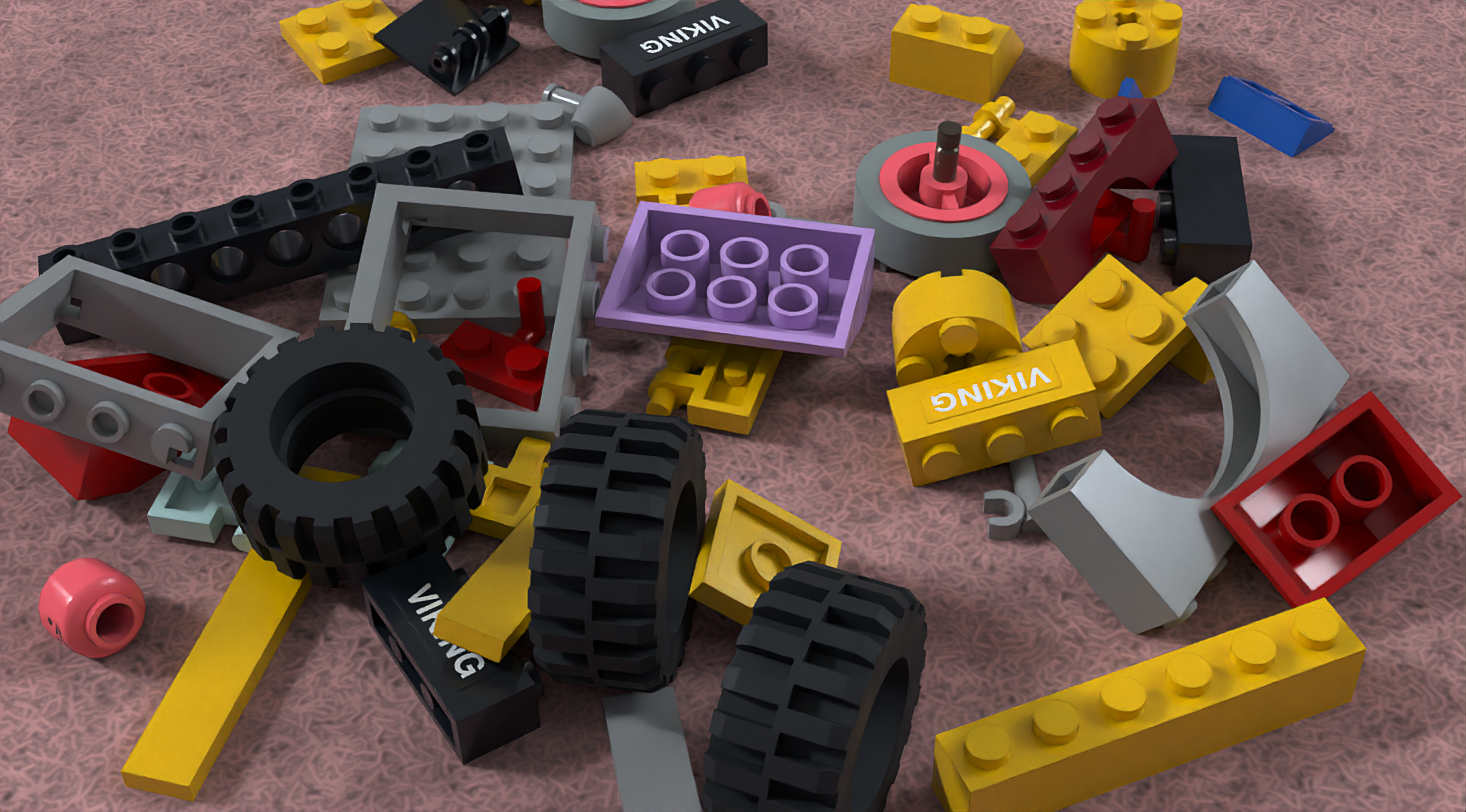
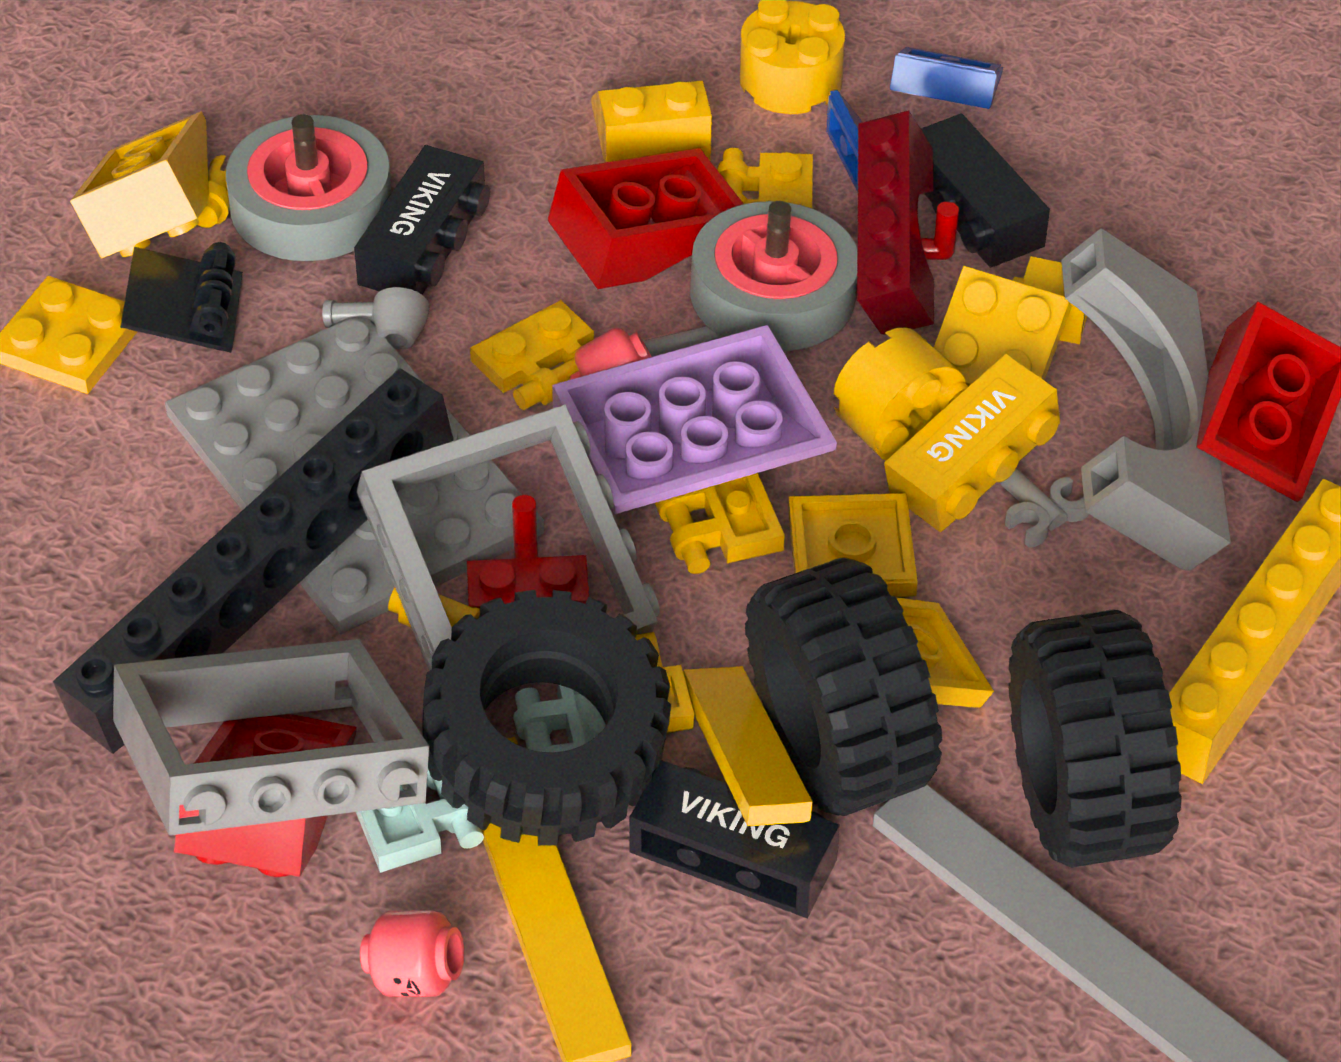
camera: 35 degrees left, 5 degrees up
(809, 457) = (858, 528): none -> yellow plate
(856, 102) = (637, 213): none -> red slope

